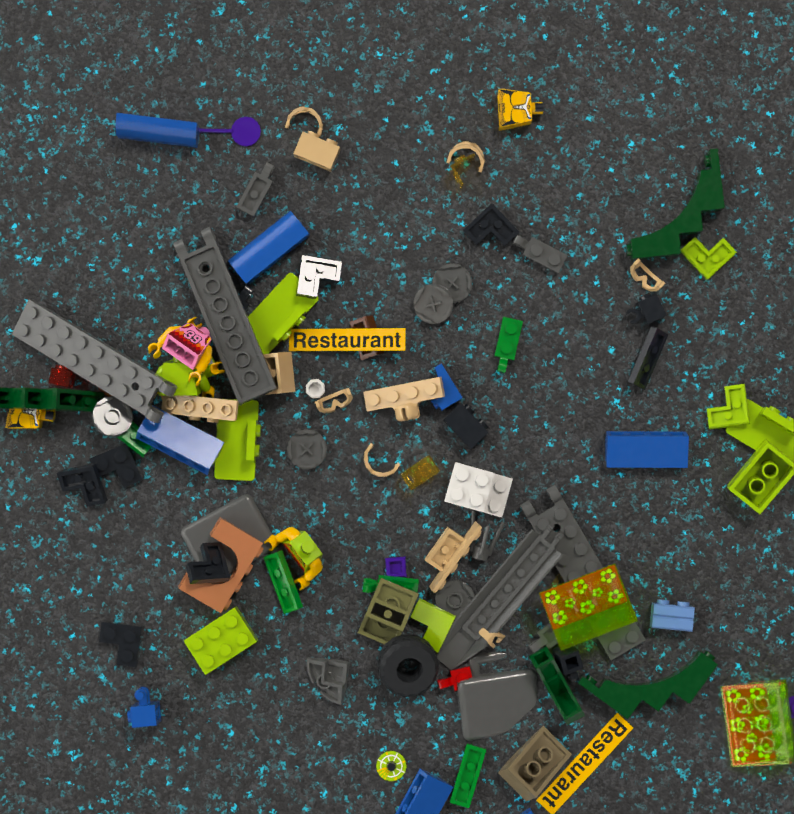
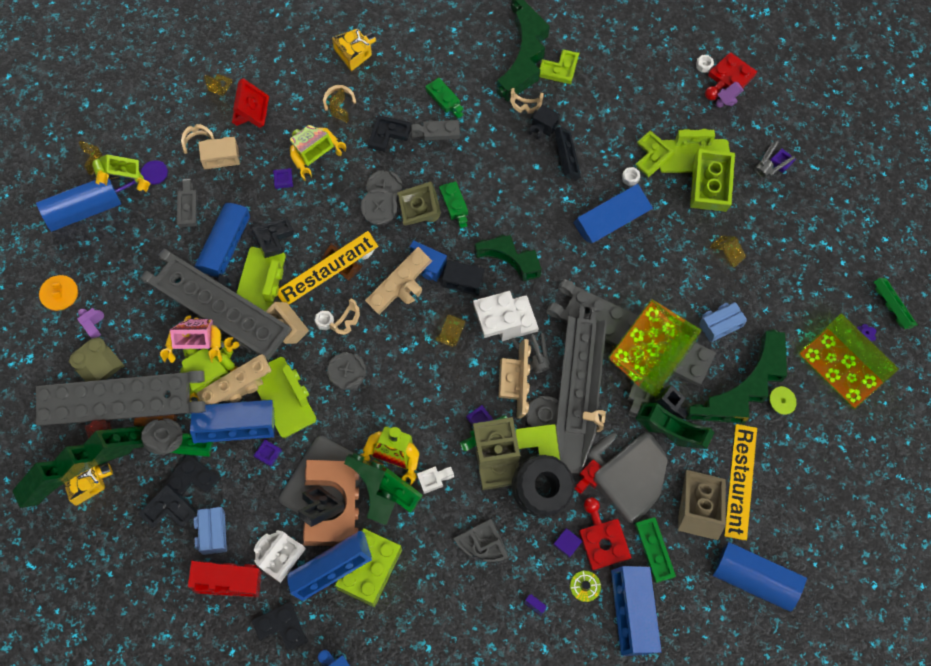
camera: 35 degrees left, 20 degrees down
(92, 303) = (95, 361): none -> olive slope
(93, 209) = (58, 292): none -> light orange piece
(98, 576) = (224, 579): none -> red wedge
(104, 258) = (89, 319): none -> medium lavender piece
(109, 525) = (211, 531): none -> medium blue brick
(152, 580) = (277, 554): none -> white slope
(188, 622) = (329, 566): none -> blue brick
(195, 483) = (267, 453): none -> dark purple tile
(197, 86) = (95, 154): none -> clear yellow bracket
(209, 116) = (119, 169): none -> lime torso
(269, 567) = (373, 473): none -> dark green arch
(320, 596) = (432, 479): none -> white plate
(338, 756) = (536, 605): none -> dark purple tile
(353, 72) = (214, 84): none -> clear yellow bracket
(362, 214) = (283, 178): none -> dark purple tile
(375, 116) = (249, 104): none -> red bracket
(379, 474) = (412, 355): tan helmet -> none
(399, 722) = (567, 543): none -> dark purple tile
(407, 198) = (310, 145): none -> torso
(426, 730) = (610, 531): none -> red plate
(471, 326) = (419, 204): none -> olive slope
(531, 447) = (503, 248): none -> dark green arch
(571, 219) = (444, 97): none -> green plate
(672, 720) = (783, 400): none -> lime piece
(692, 419) = (630, 176): none -> white tile
(731, 552) = (731, 249): none -> clear yellow bracket

